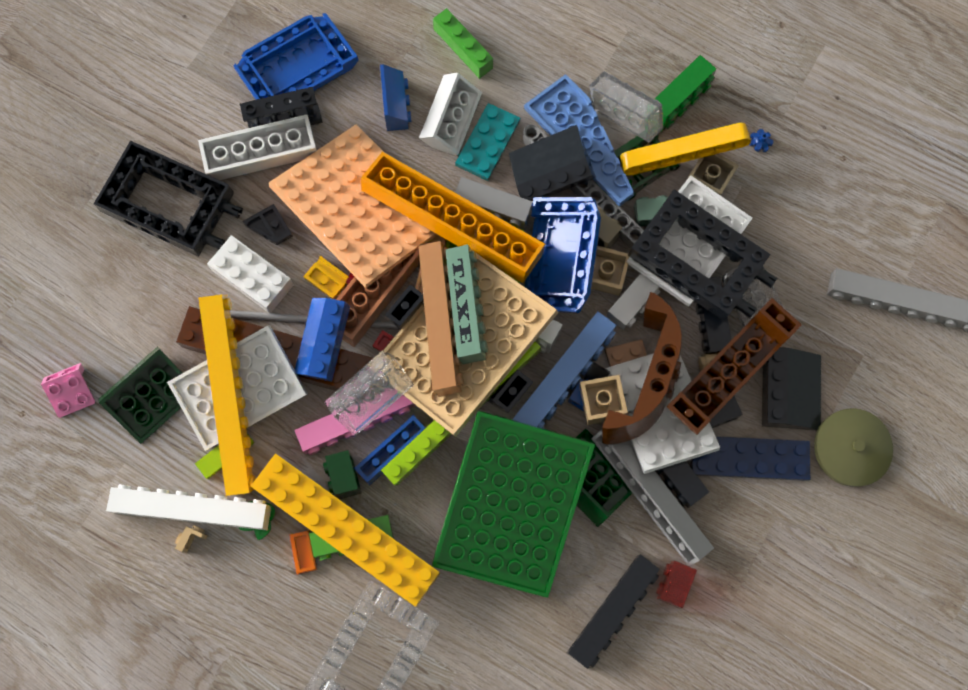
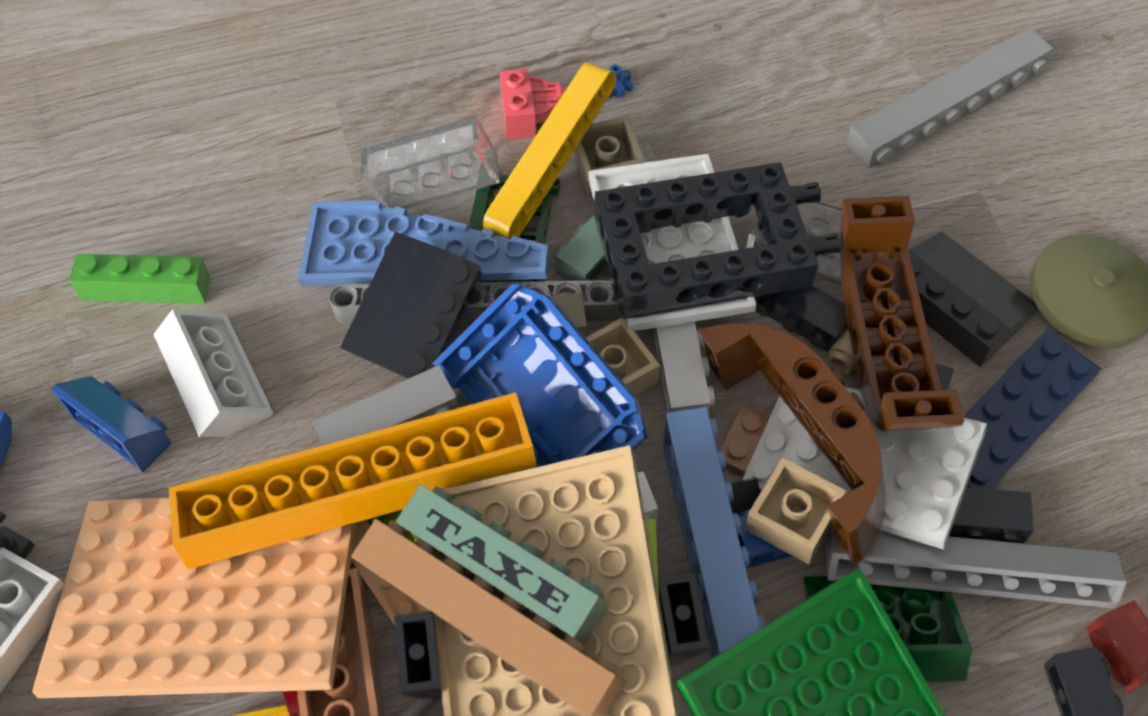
camera: 45 degrees left, 15 degrees down
(487, 141) = (296, 363): teal plate -> none
(685, 90) = (476, 86): green brick -> none
(707, 113) = (526, 101): none -> coral brick

